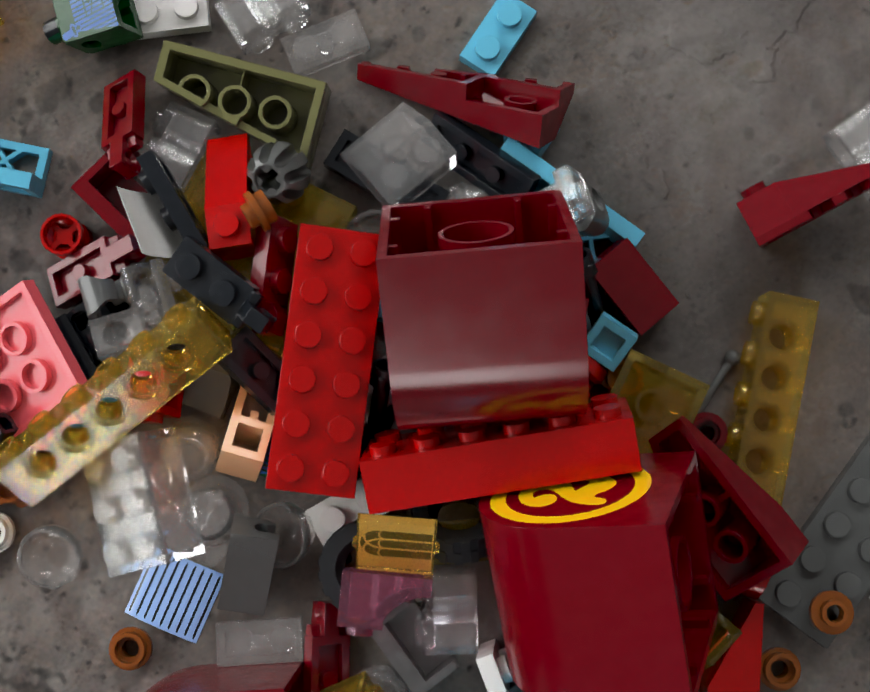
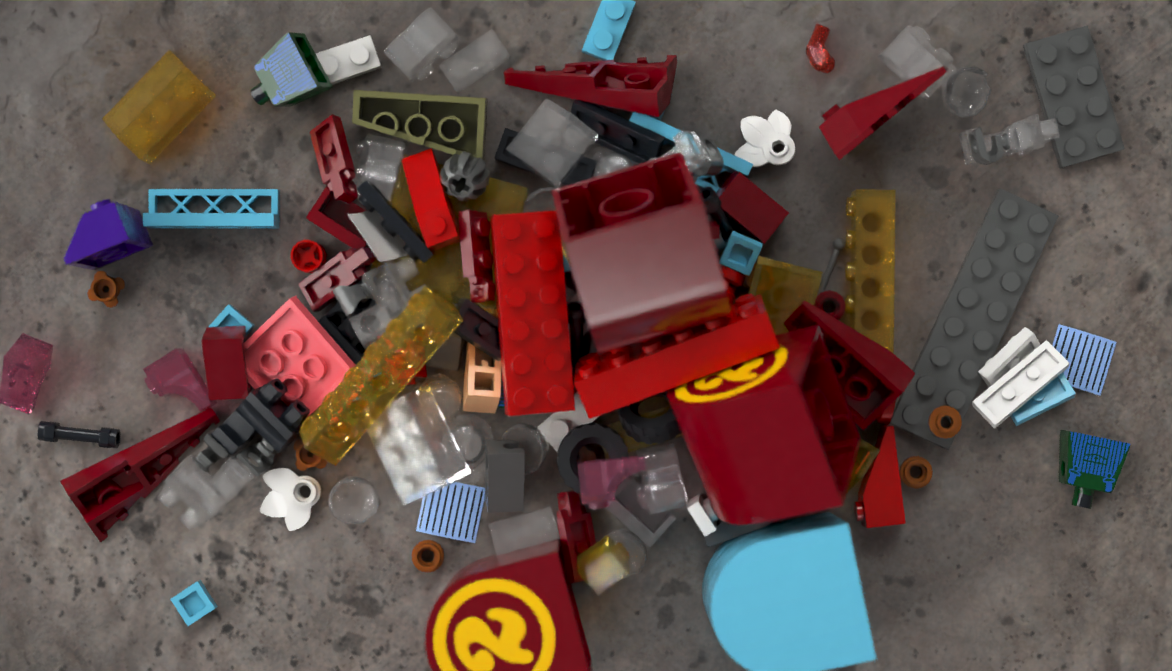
camera: 10 degrees left, 5 degrees up
(218, 286) = (440, 273): black hinge -> none
(258, 210) = (459, 211): dark orange plate -> none
(396, 543) = (612, 437): clear yellow piece -> none
(662, 205) = (763, 136): none -> white plate
(748, 116) = (817, 52): none -> clear red arm

